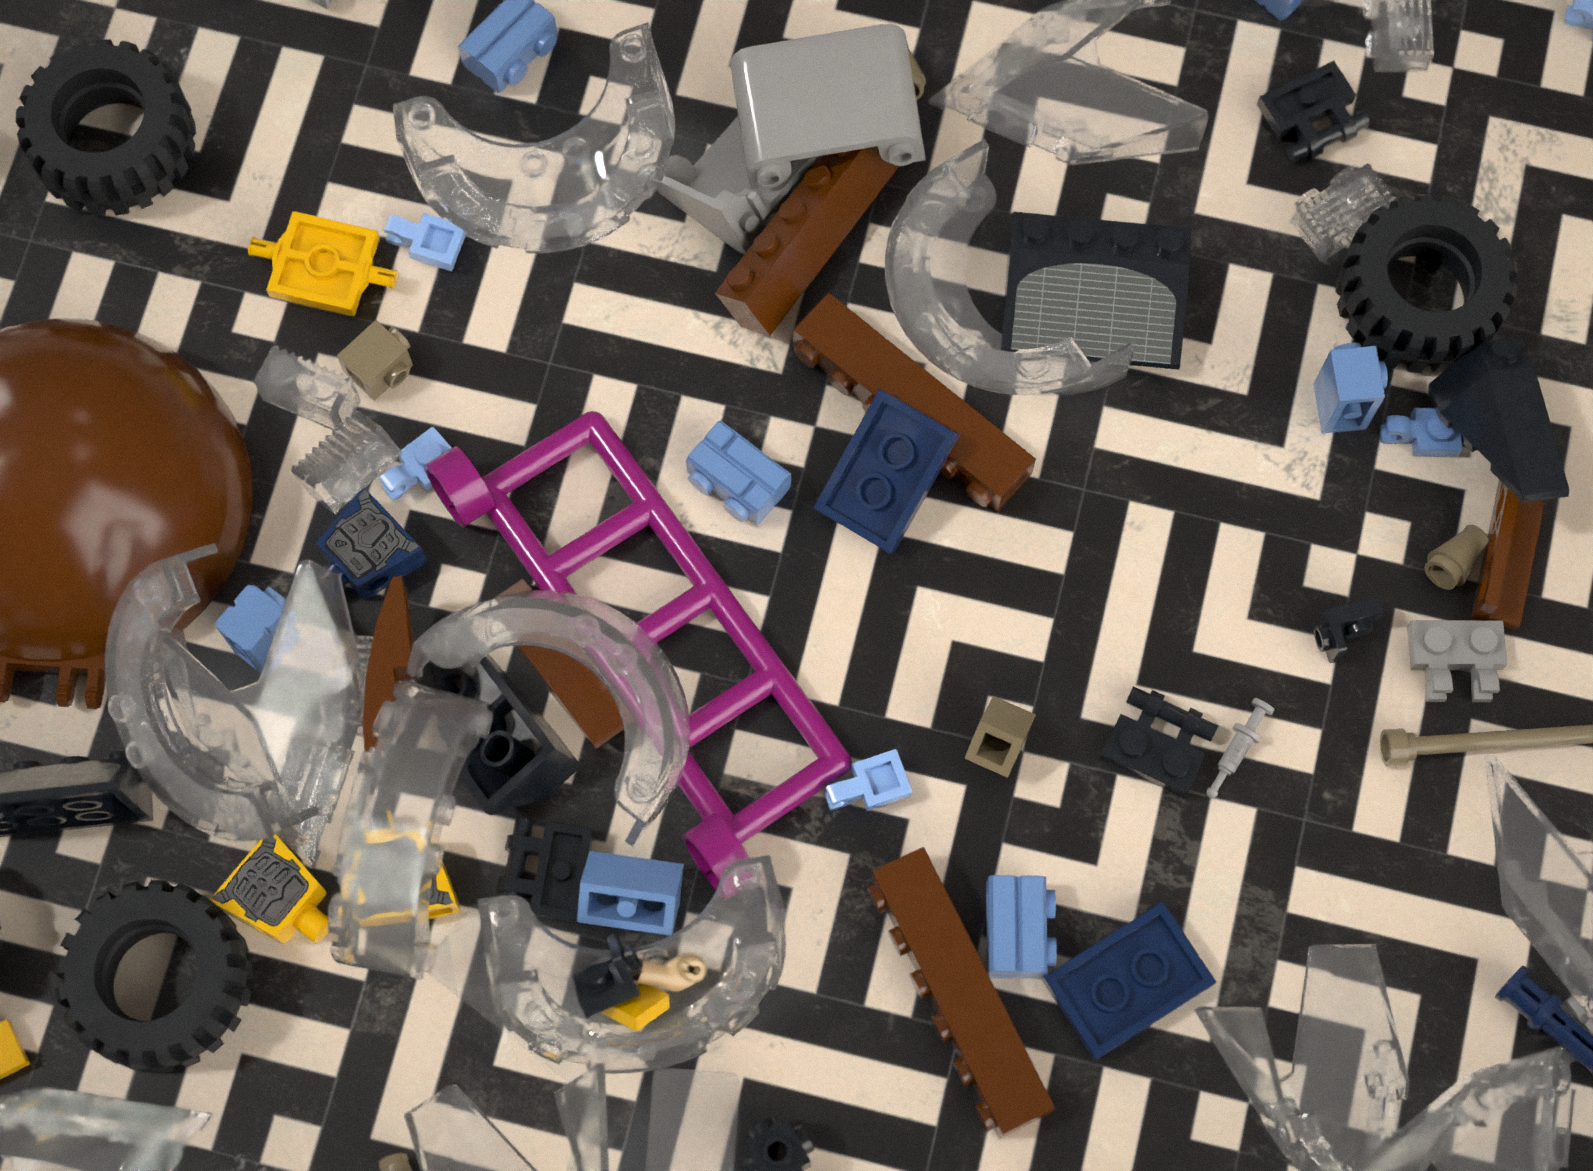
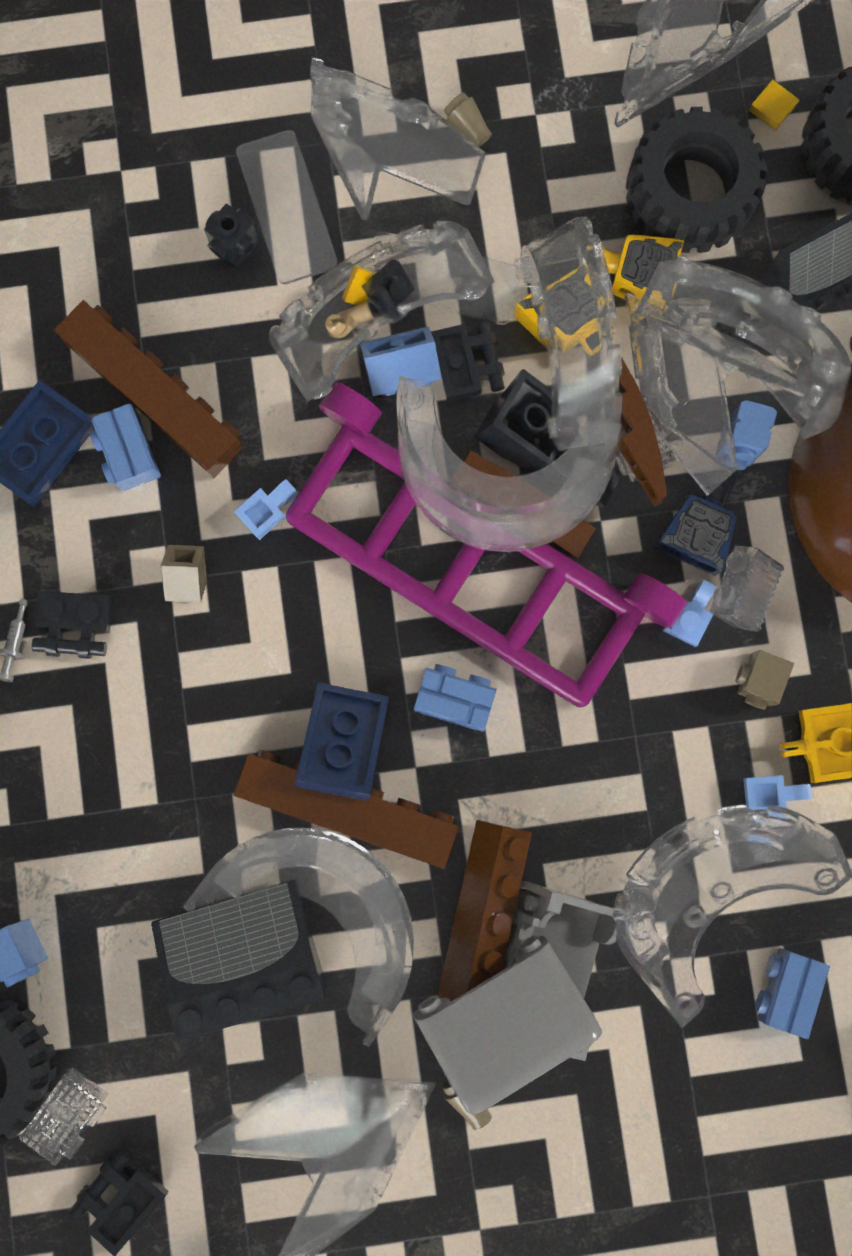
camera: 160 degrees right, 10 degrees up
(306, 388) = (803, 633): clear brick -> none

